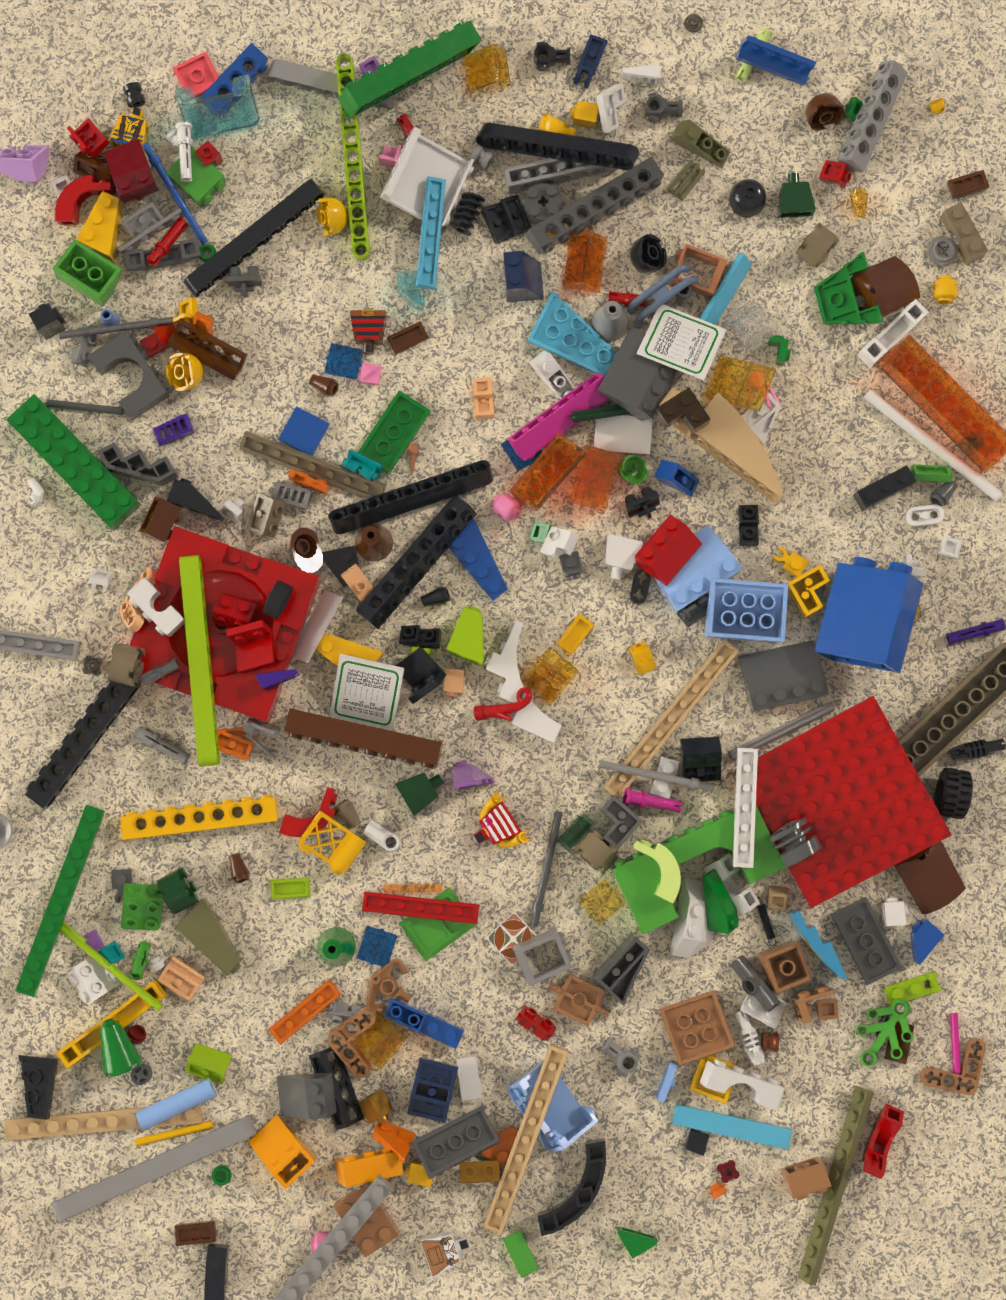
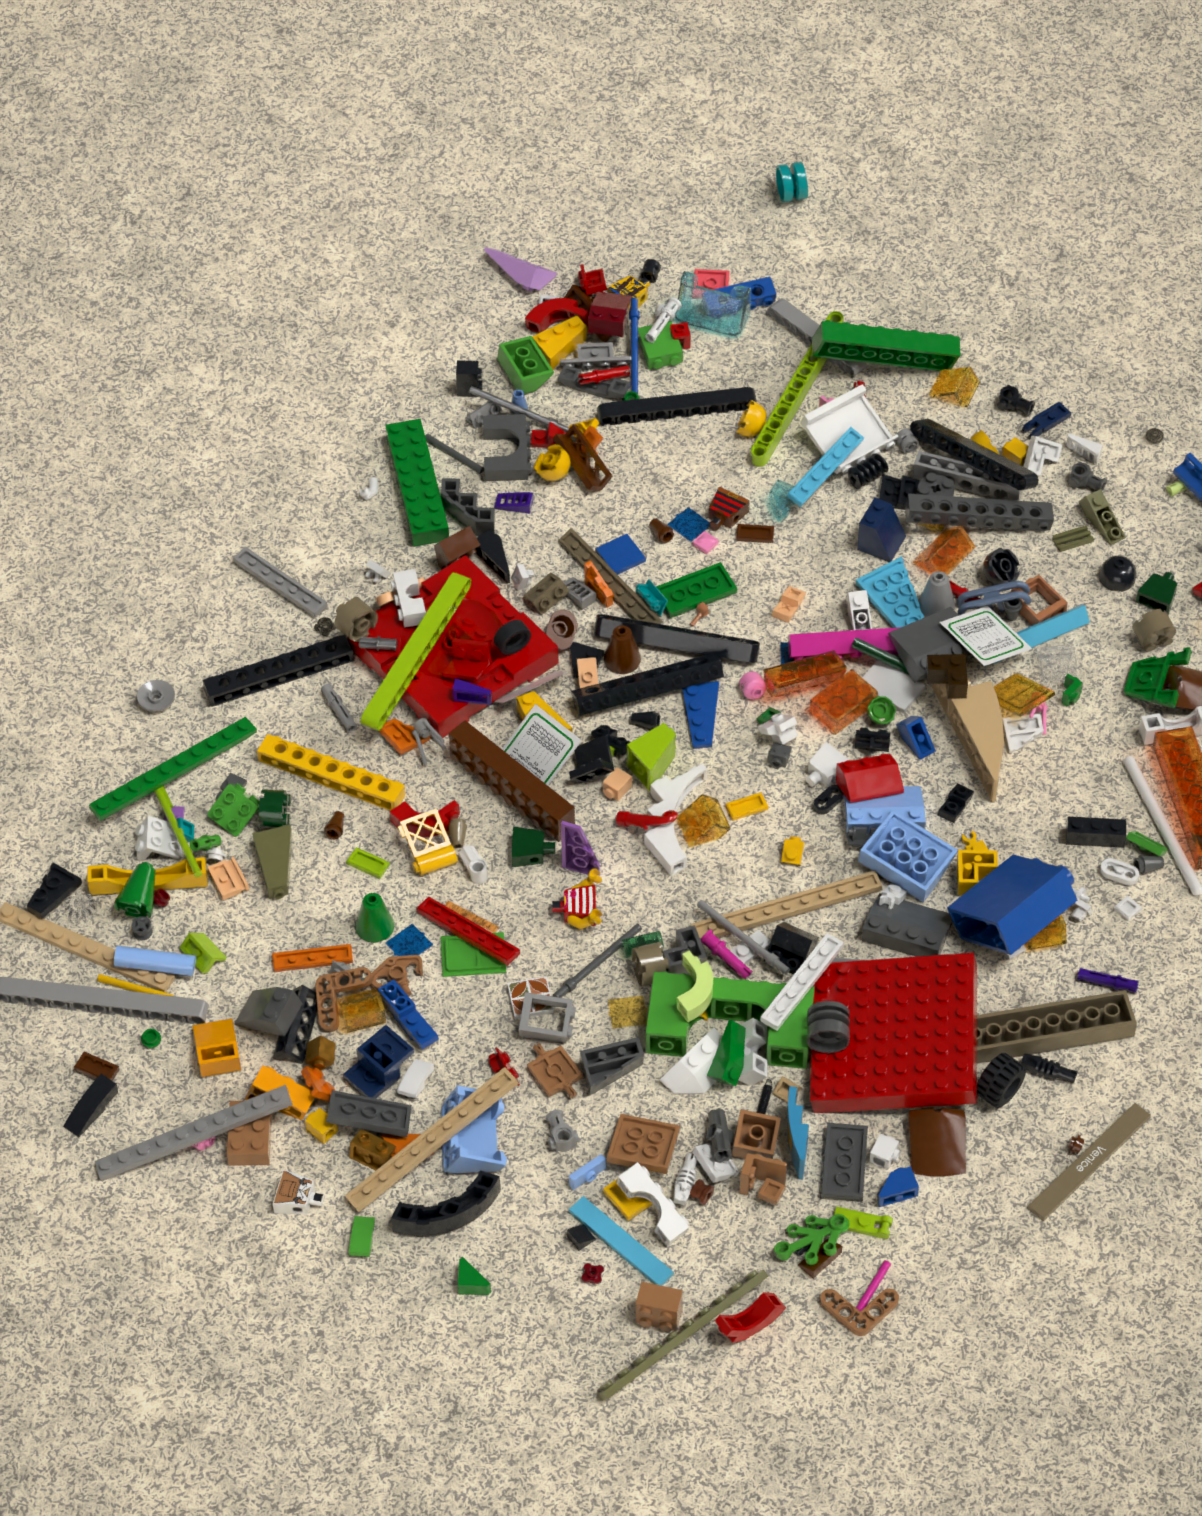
camera: 30 degrees right, 30 degrees down
(245, 282) = (647, 431): dark grey hips -> none
(717, 1190) = (574, 1281): orange plate -> none
(753, 655) = (892, 895): none -> white plate

